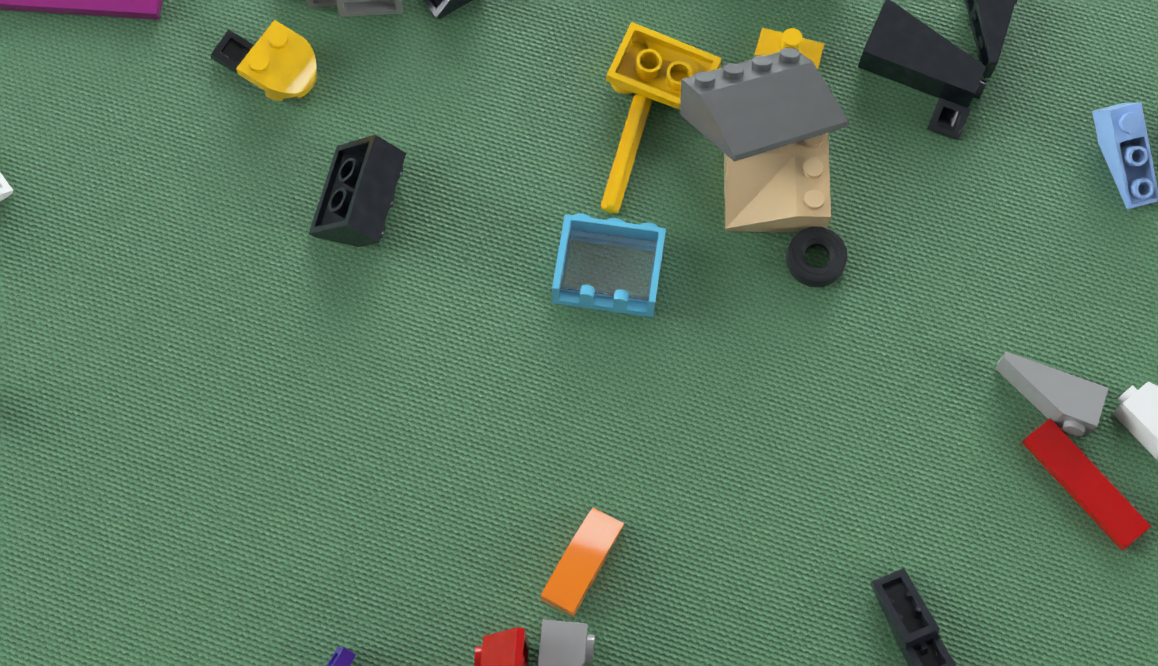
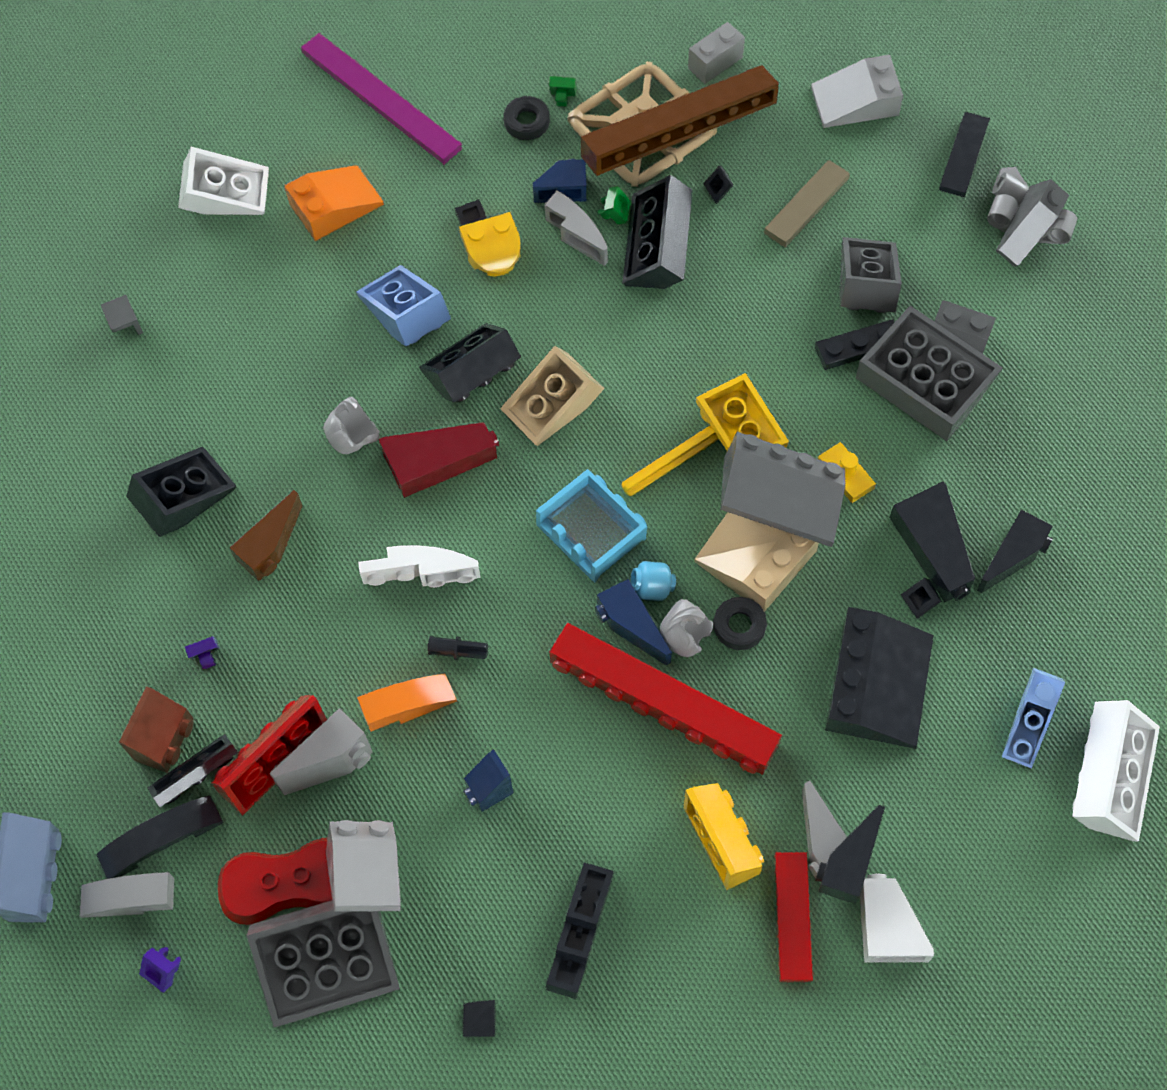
camera: 40 degrees right, 5 degrees down
(74, 130) = (331, 199): none -> orange slope
(173, 530) = (178, 490): none -> black slope
(243, 182) = (405, 305): none -> medium blue slope
(297, 342) = (349, 427): none -> light grey hair
(309, 519) = (266, 541): none -> reddish brown slope
(403, 307) = (437, 454): none -> dark red slope
(465, 172) = (551, 396): none -> tan slope
(491, 414) = (432, 564): none -> white slope
(585, 474) = (457, 648): none -> black axle
(709, 276) = (653, 580): none -> medium azure head
(718, 325) = (630, 619): none -> dark blue slope
(729, 577) = (488, 782): none -> dark blue slope
(774, 297) = (685, 628): none -> light grey hair
(813, 376) = (665, 699): none -> red brick
(972, 460) = (722, 834): none -> yellow slope
(974, 218) = (879, 679): none -> black slope
(1107, 396) = (849, 862): none -> black slope

